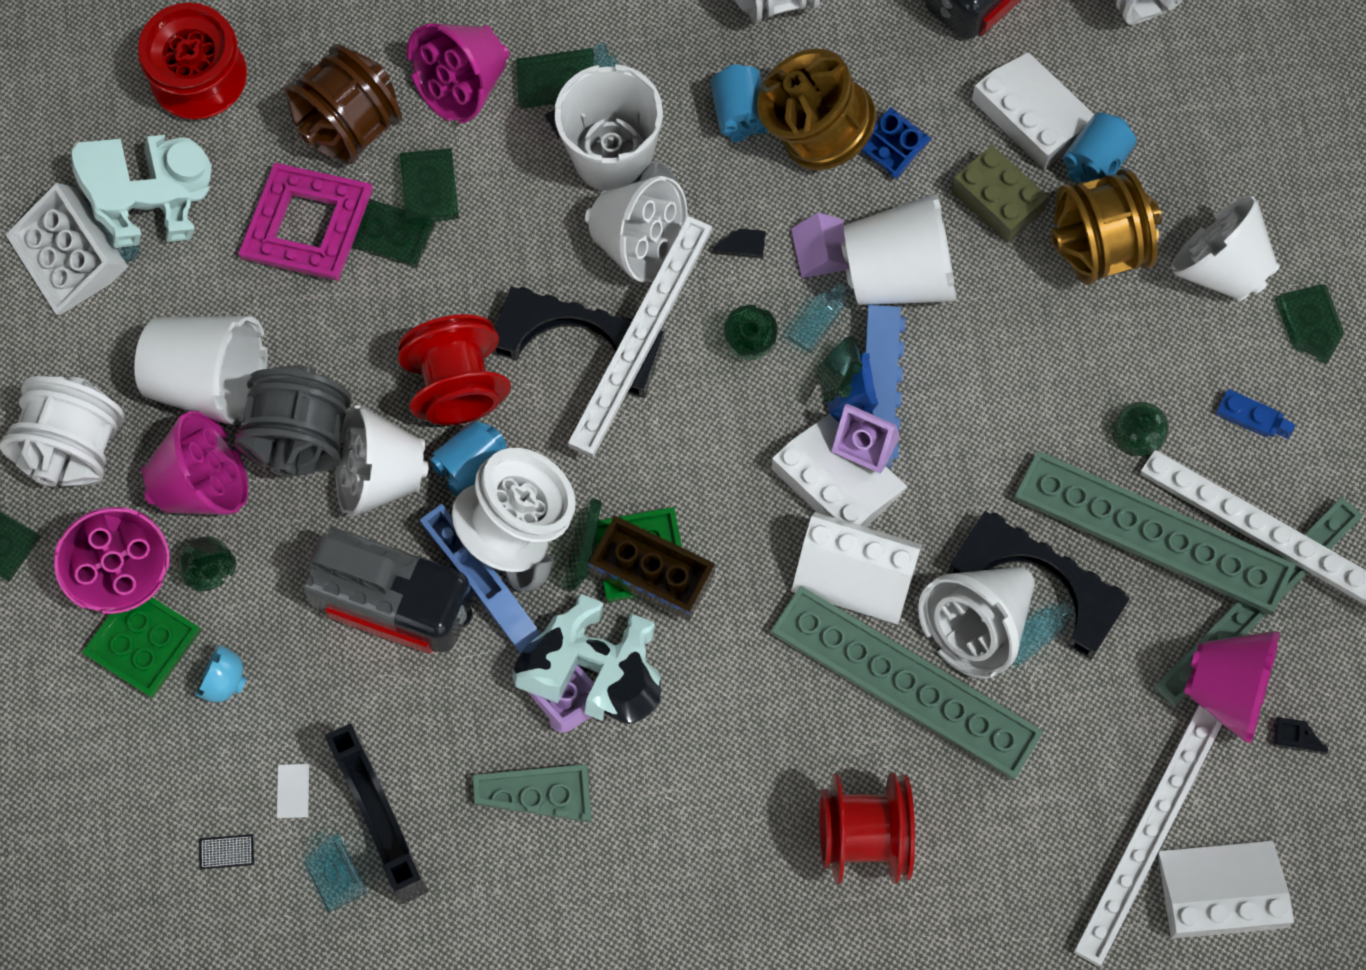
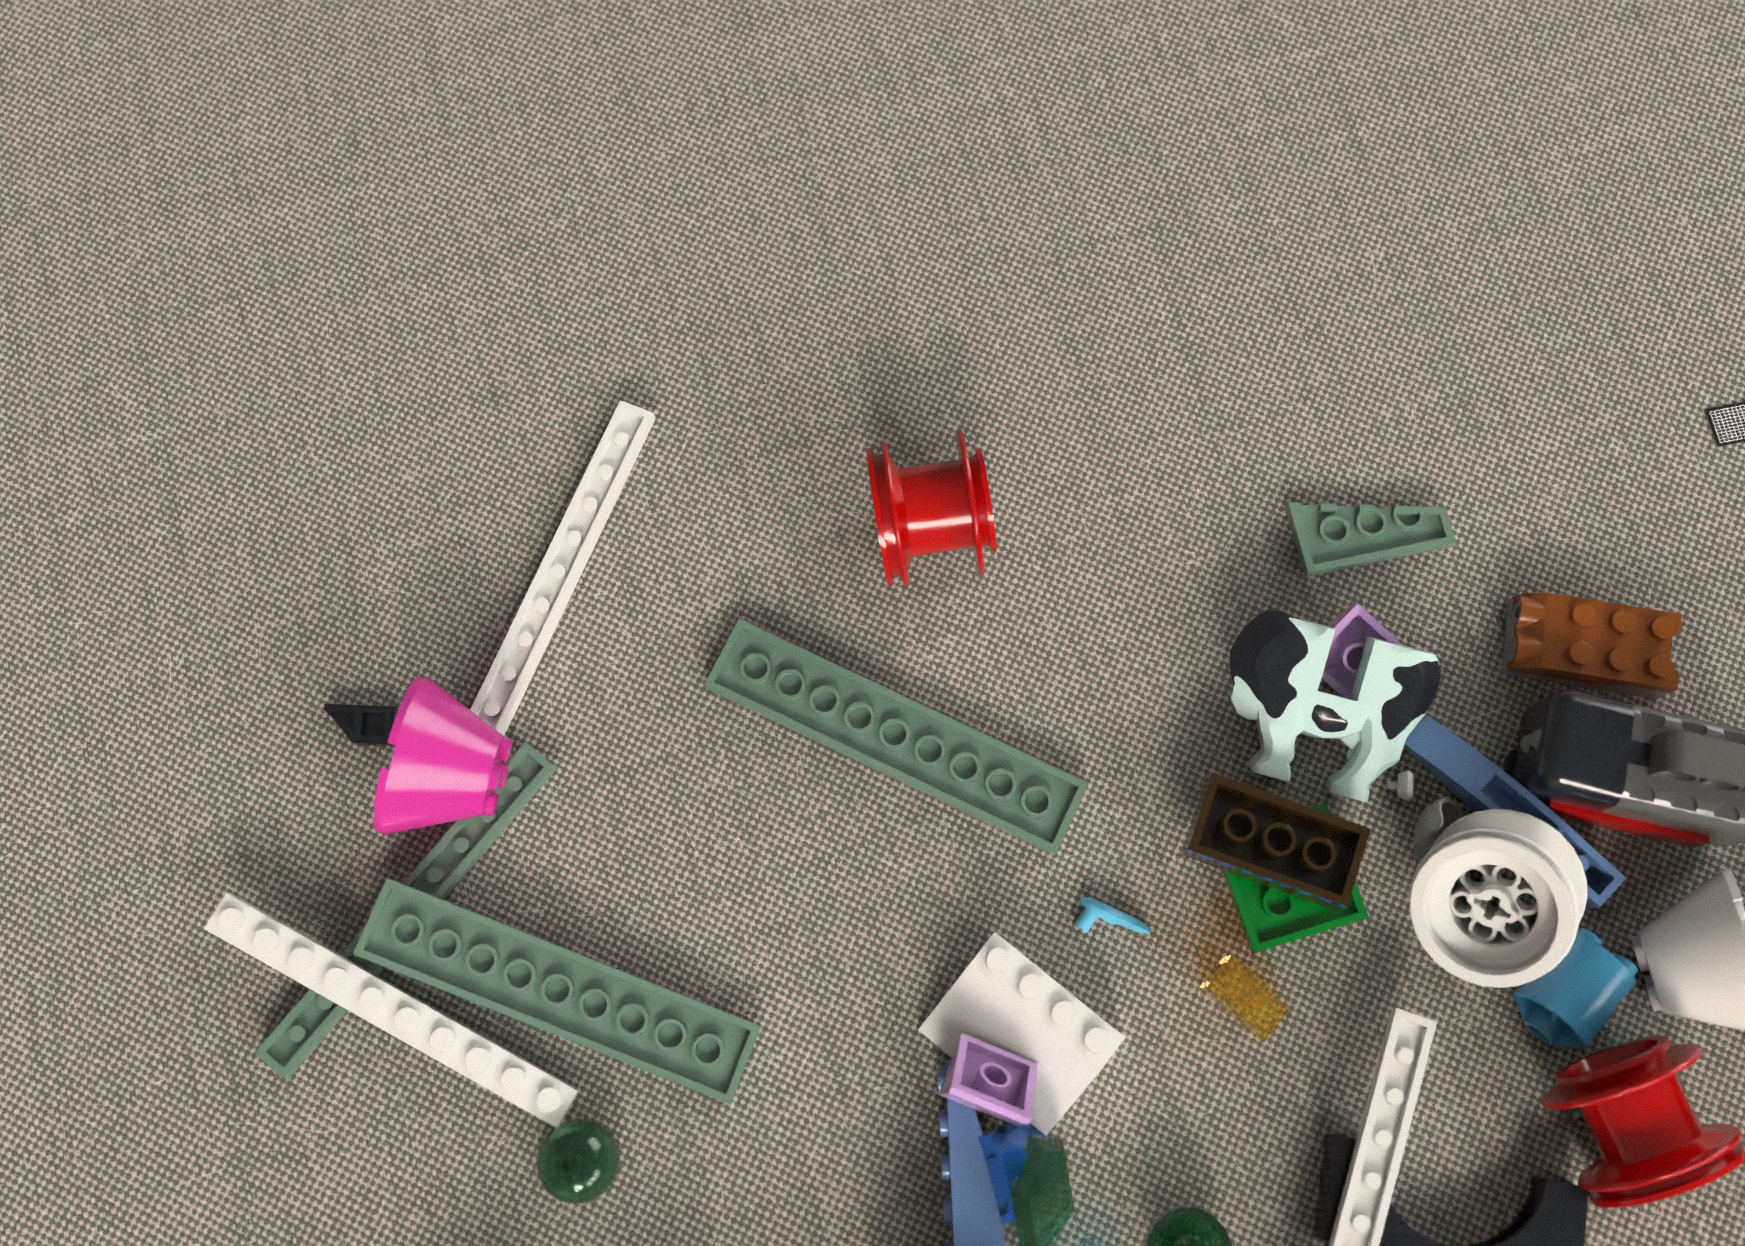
camera: 175 degrees right, 5 degrees up
(293, 791) = (1682, 506): white sticker -> none
(335, 874) = (1595, 405): clear light blue slope -> none
(377, 813) = (1523, 412): black arch -> none
(394, 688) = (1591, 644): none -> dark orange piece
(546, 609) = (1404, 786): none -> white rock
(582, 545) = (1378, 871): clear green tile -> none
(686, 482) = (1244, 997): none -> clear yellow slope
(771, 547) = (1096, 908): none -> medium azure bar
(856, 567) = (981, 887): white slope -> none
(977, 618) = (795, 828): white cone -> none
(1040, 632) = (722, 825): clear light blue hinge -> none
(1094, 602) = (638, 871): black arch -> none
(1224, 889) = (464, 510): white slope -> none
(1254, 415) = (410, 1204): blue hinge -> none

